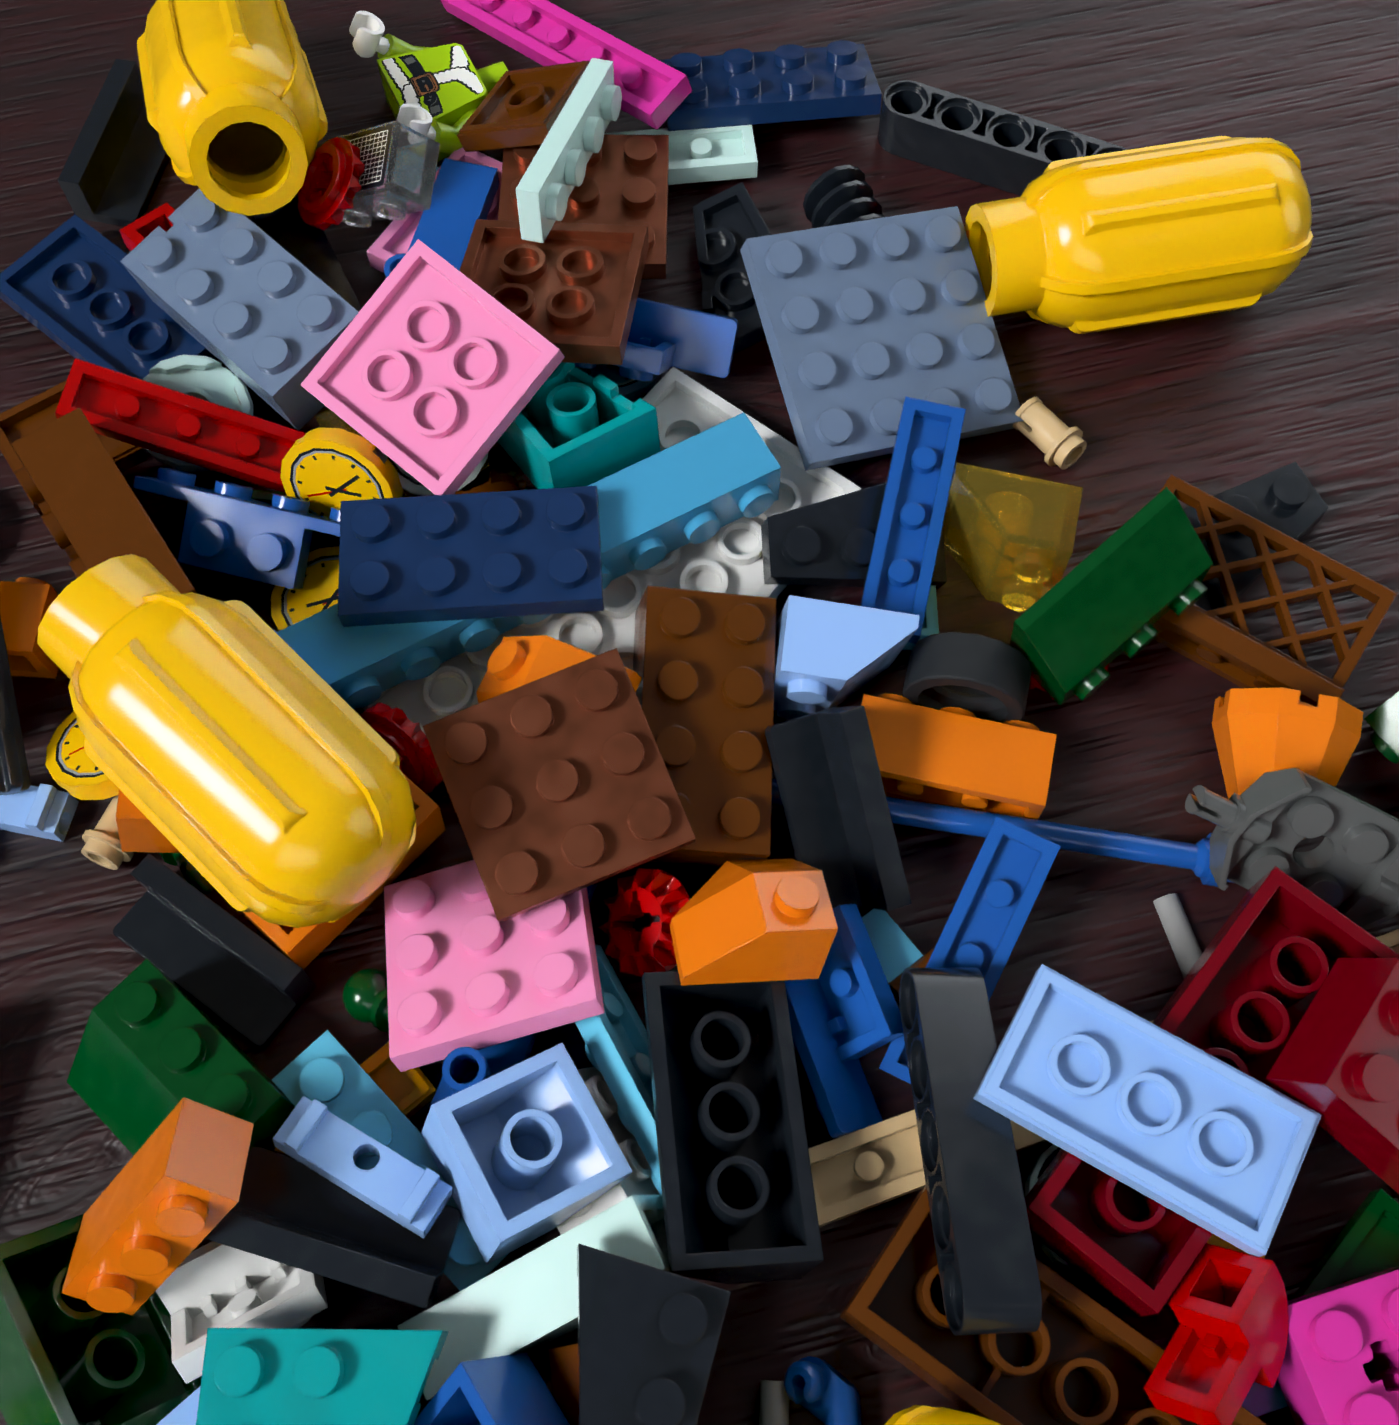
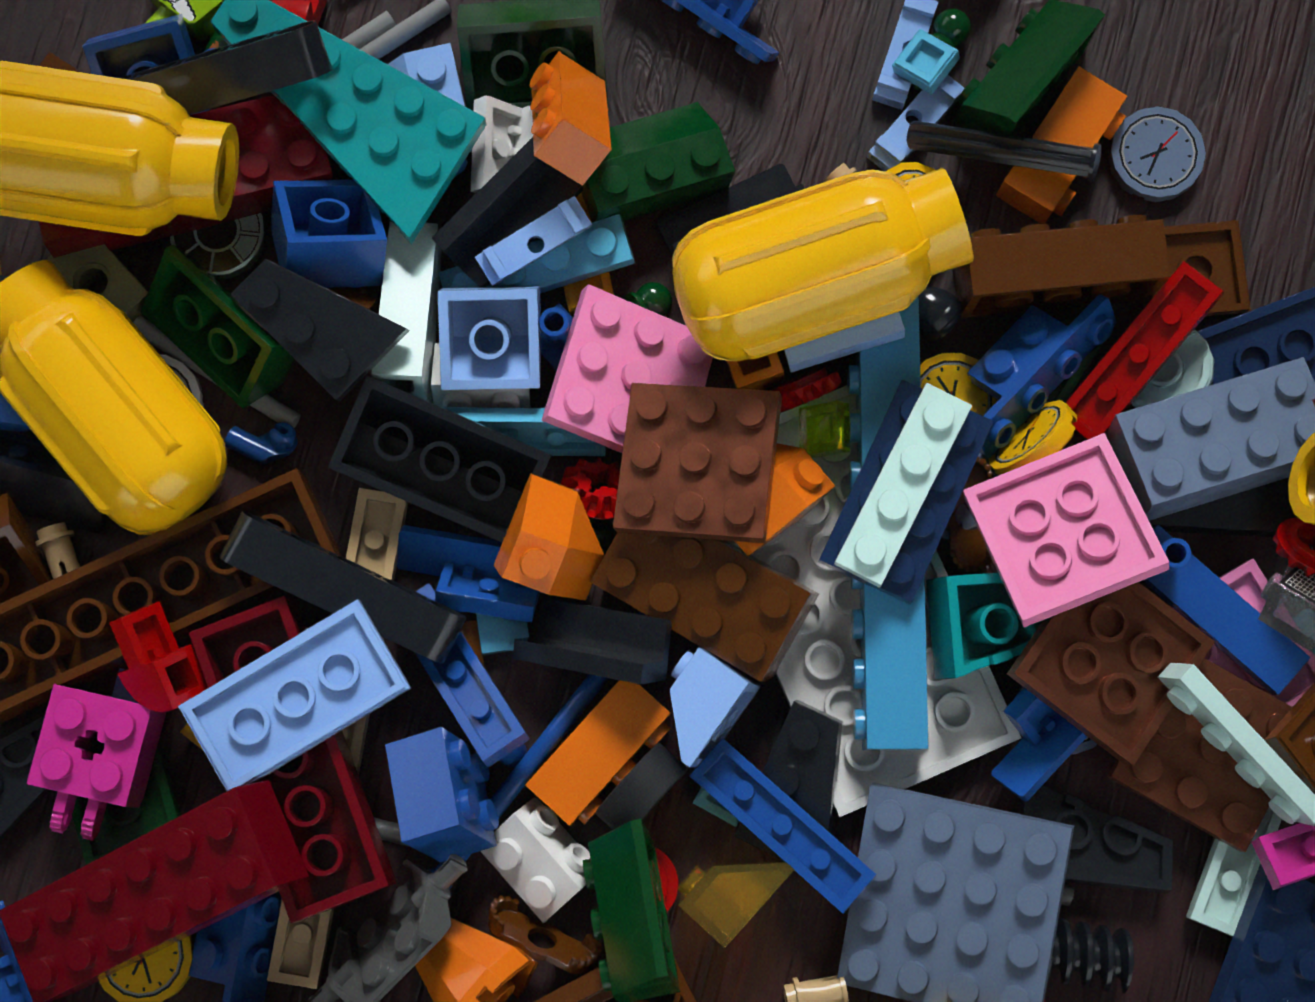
camera: 120 degrees right, 15 degrees up
(437, 688) = (825, 428): none -> clear neon green plate
(466, 543) = (903, 485): none -> light aqua plate
(1106, 761) = (538, 858): none -> white bracket
(1127, 880) = (441, 795): none -> blue brick
(1180, 675) = (515, 927): none -> reddish brown piece

